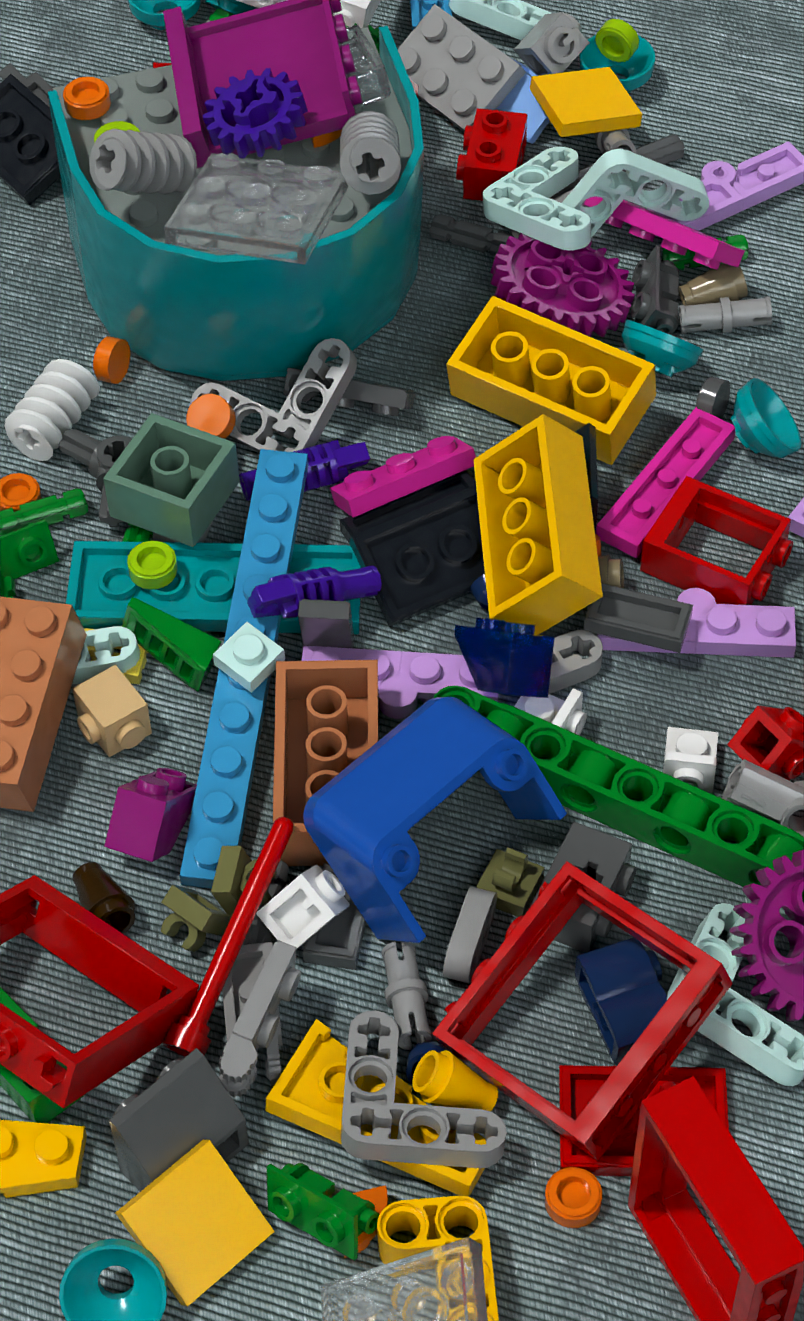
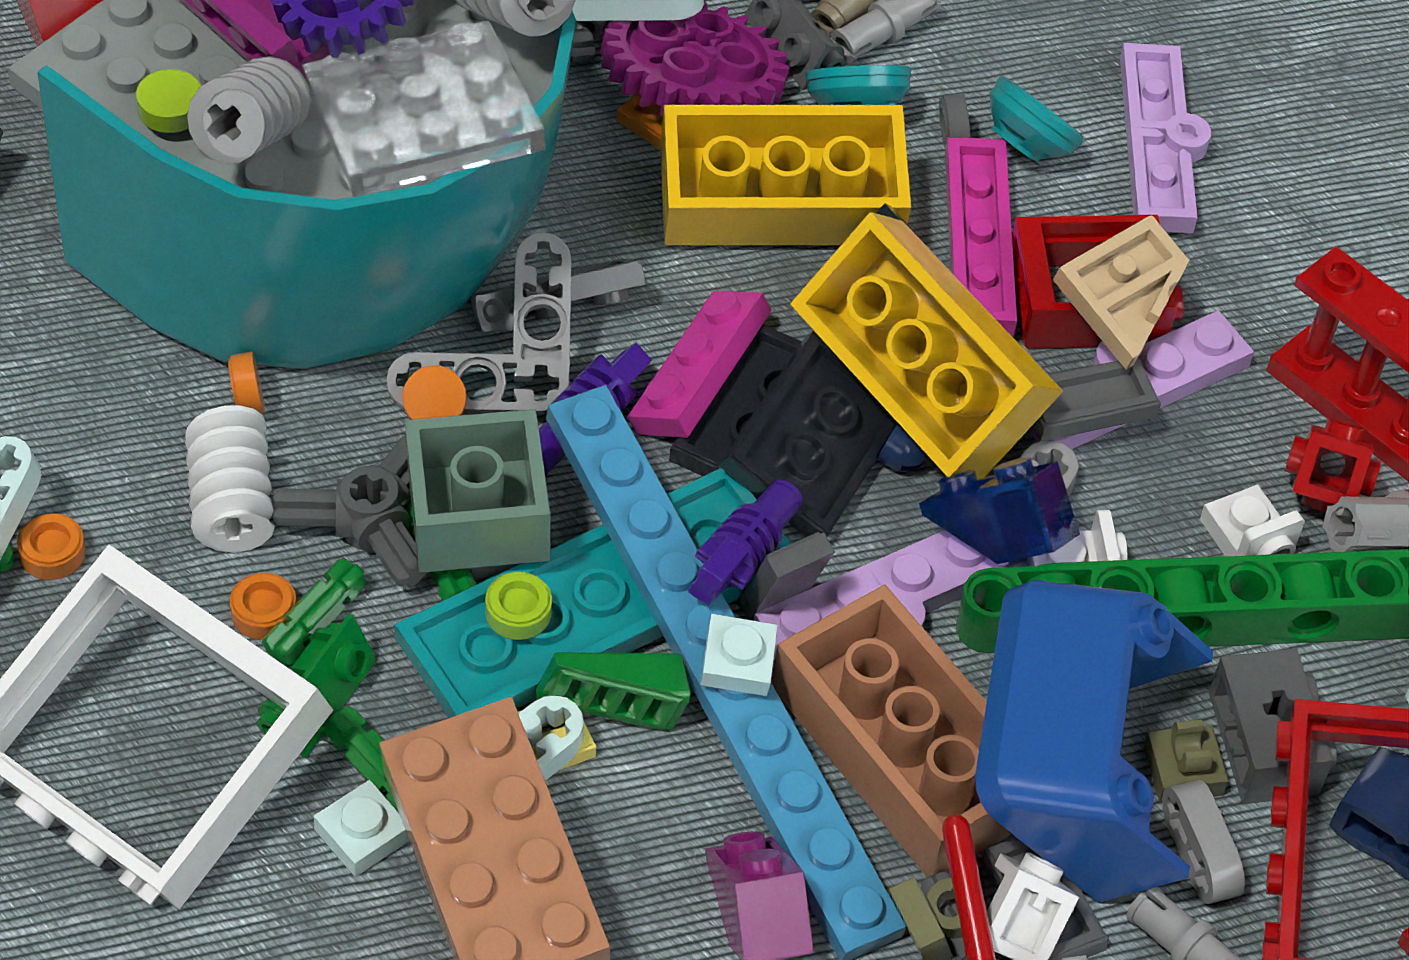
camera: 40 degrees left, 0 degrees up
(86, 98) = (81, 59): orange tile -> none
(111, 711) = (612, 804): tan brick -> none
(714, 551) = (1124, 285): none -> tan wing

